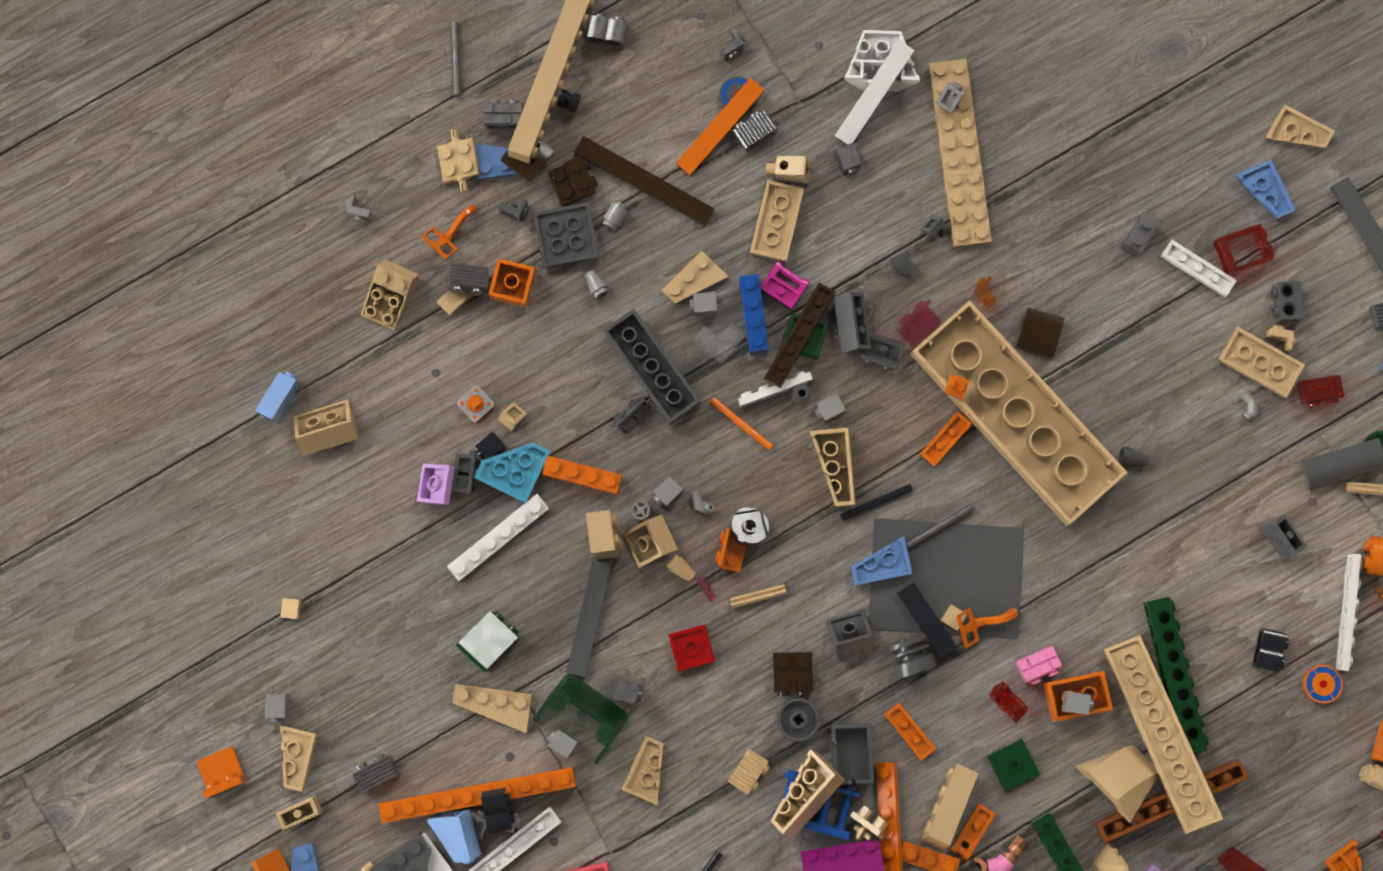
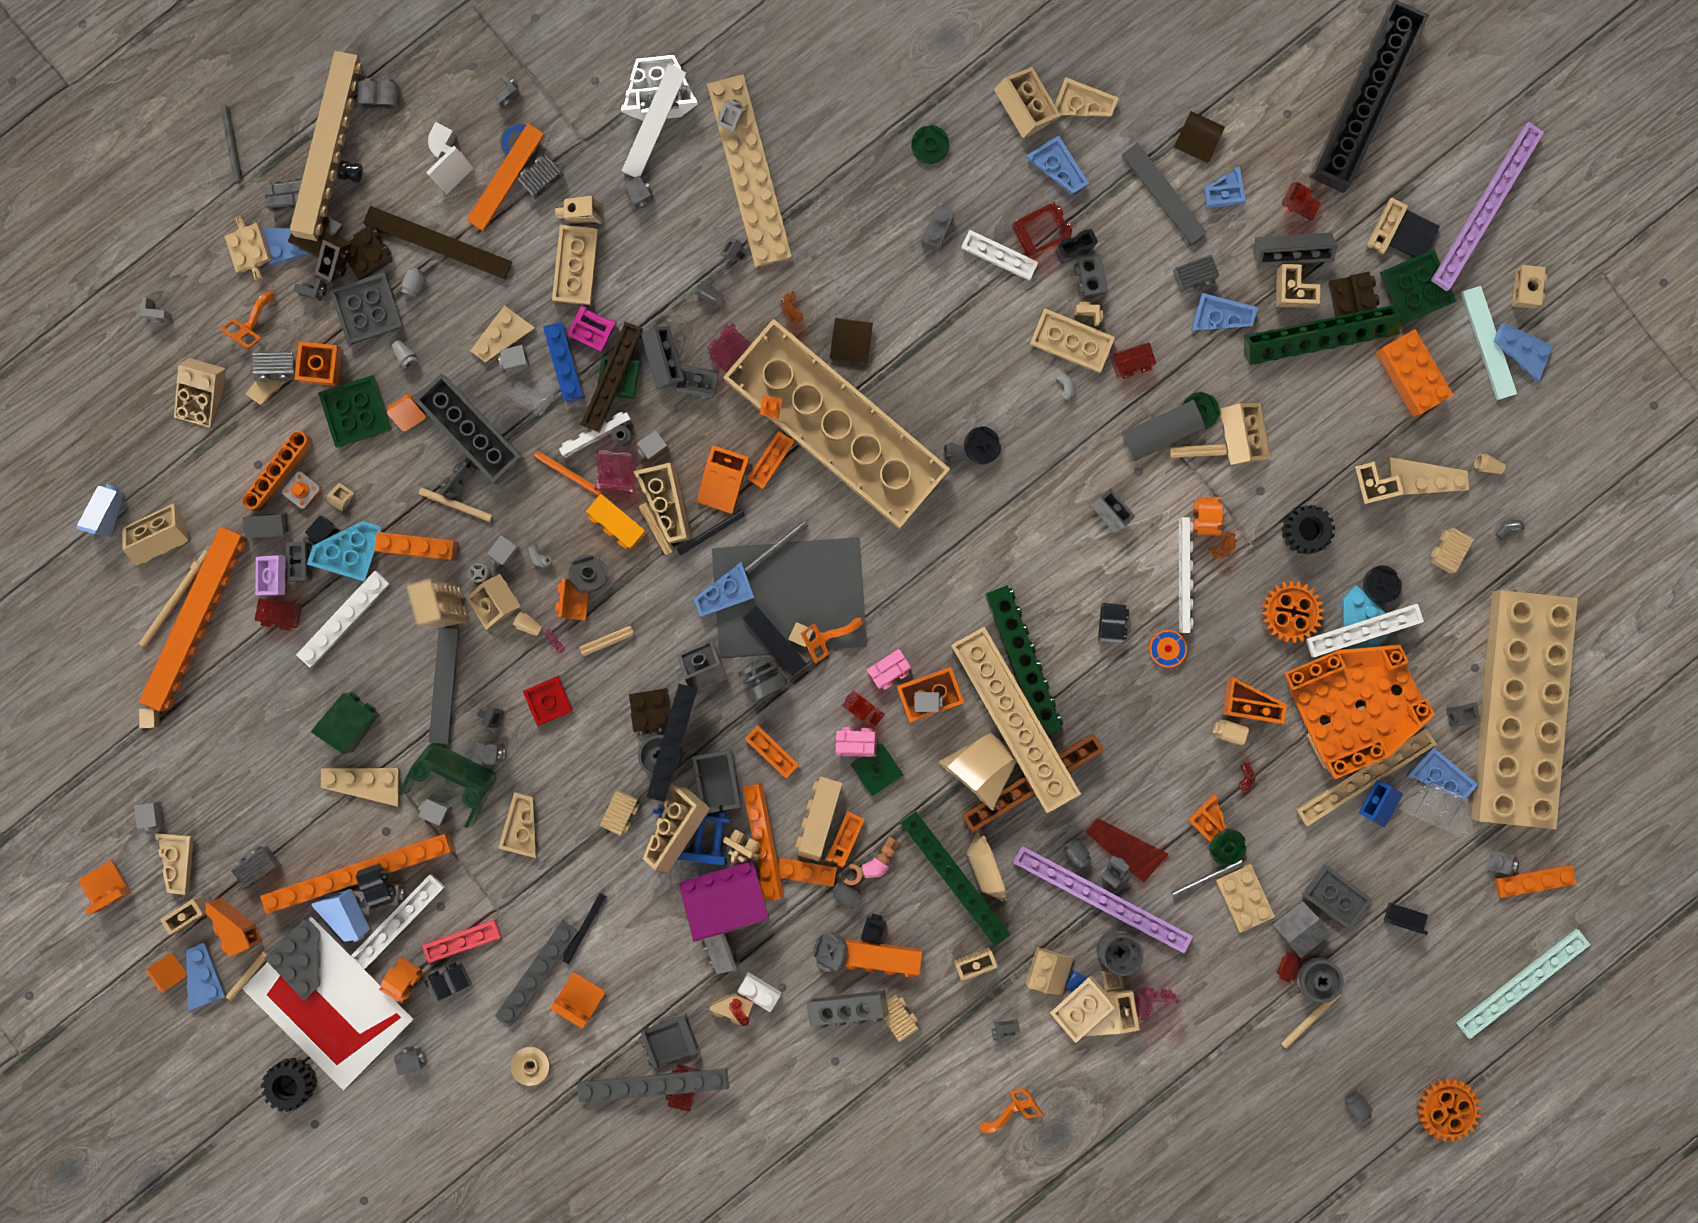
camera: 15 degrees left, 5 degrees up
(348, 835) = (232, 927): none -> orange slope
(350, 517) = (193, 619): none -> orange brick
(360, 467) = (195, 567): none -> tan bar
(435, 433) = (265, 525): none -> dark grey hinge
(435, 522) = (278, 613): none -> clear red brick
(445, 384) = (268, 474): none -> orange beam
(540, 334) = (354, 411): none -> dark green plate
(542, 182) = (333, 258): none -> dark brown brick
(591, 342) = (406, 412): none -> orange piece
(625, 439) = (455, 504): none -> tan bar
(632, 656) = (491, 717): none -> dark grey tile
(660, 87) = (441, 140): none -> white brick
(668, 112) = (450, 170): none -> white slope
(783, 479) = (615, 522): none -> light orange brick
(790, 429) = (615, 472): none -> clear pink bracket
(814, 708) = (671, 742): none -> black brick
(822, 491) = (655, 528): none -> tan axle
(896, 451) = (722, 479): none -> orange slope
(997, 734) = (856, 743): none -> bright pink brick
(1141, 151) = (930, 144): none -> dark green tile
(1159, 453) = (982, 445): none -> black tile
(1243, 123) = (1027, 102): none -> tan slope
(1276, 270) = (1072, 247): none -> black brick

